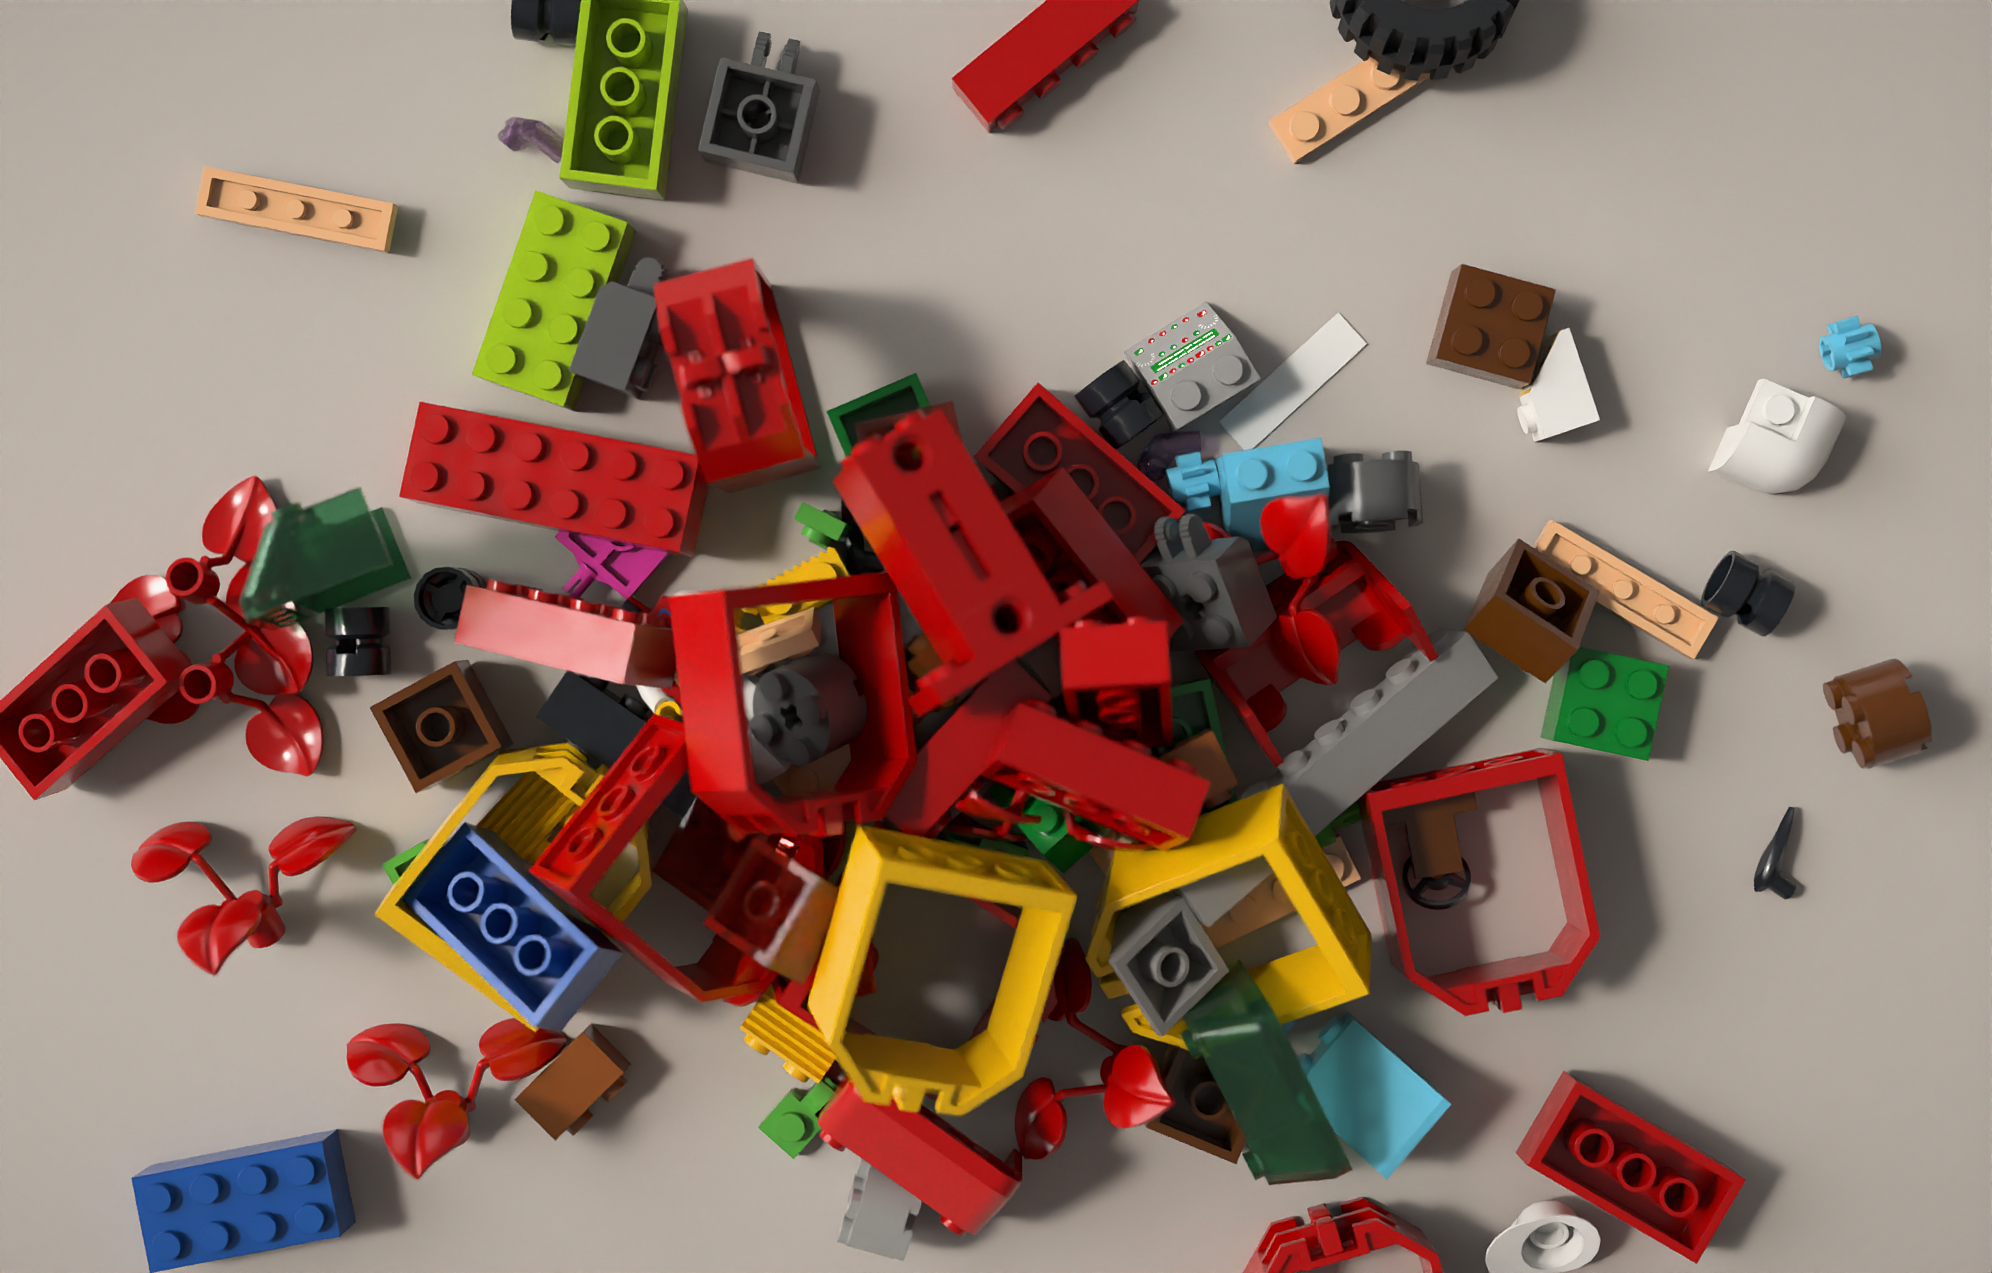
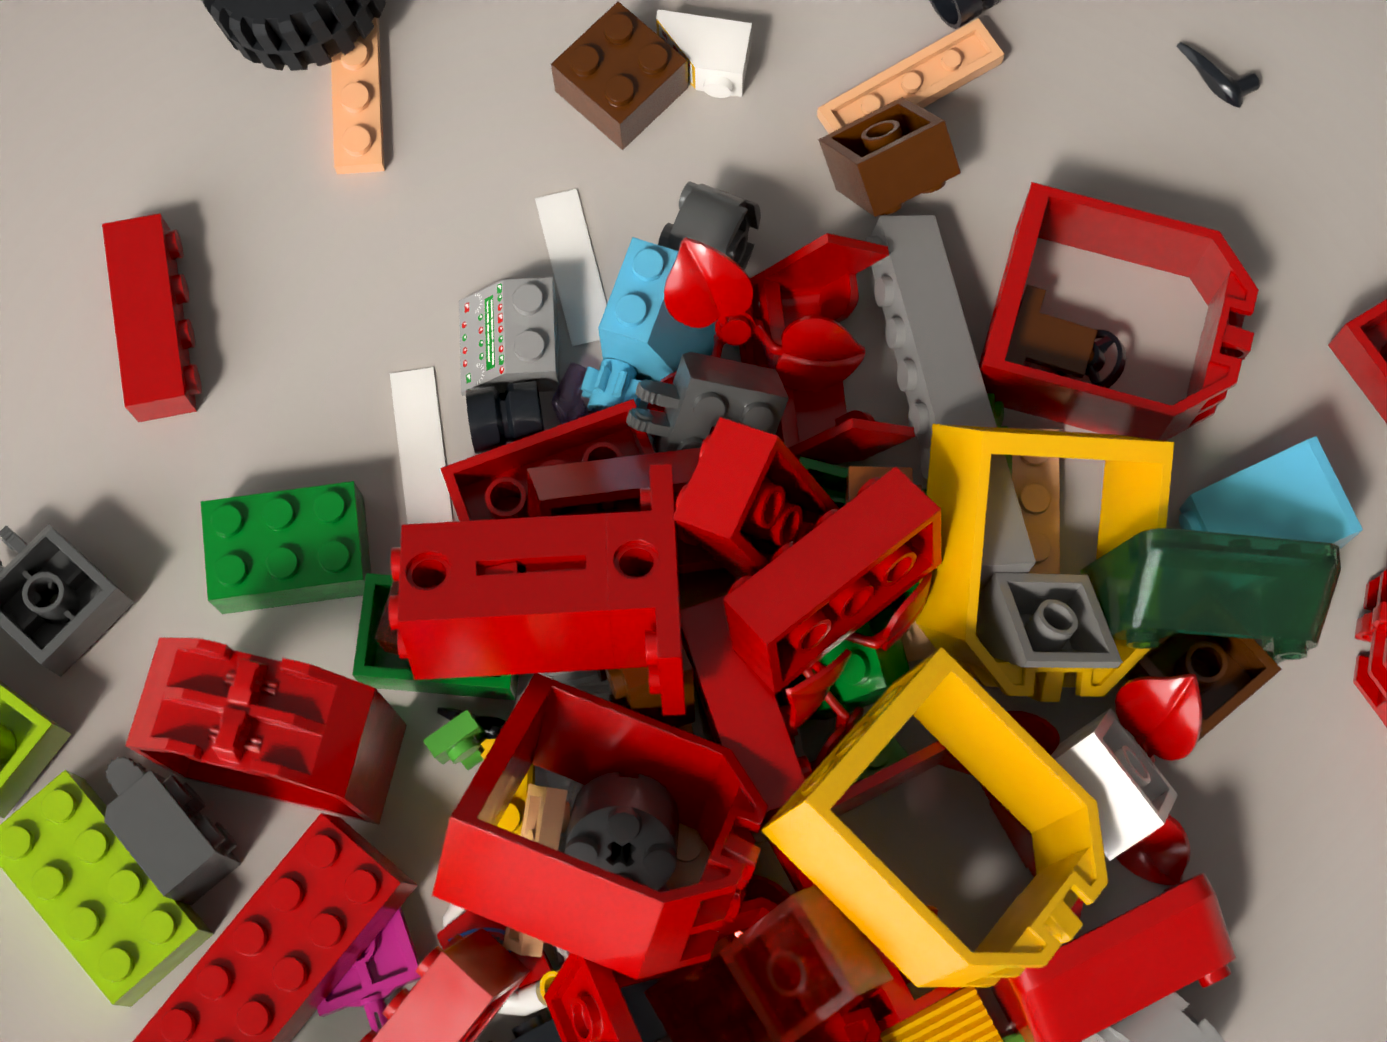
camera: 60 degrees left, 15 degrees down
(908, 286) = (285, 547): none -> green brick
(1058, 344) = (420, 446): none -> white sticker
(1061, 1076) = (1121, 778): none -> white brick
(1605, 703) = (1007, 142): green brick -> none

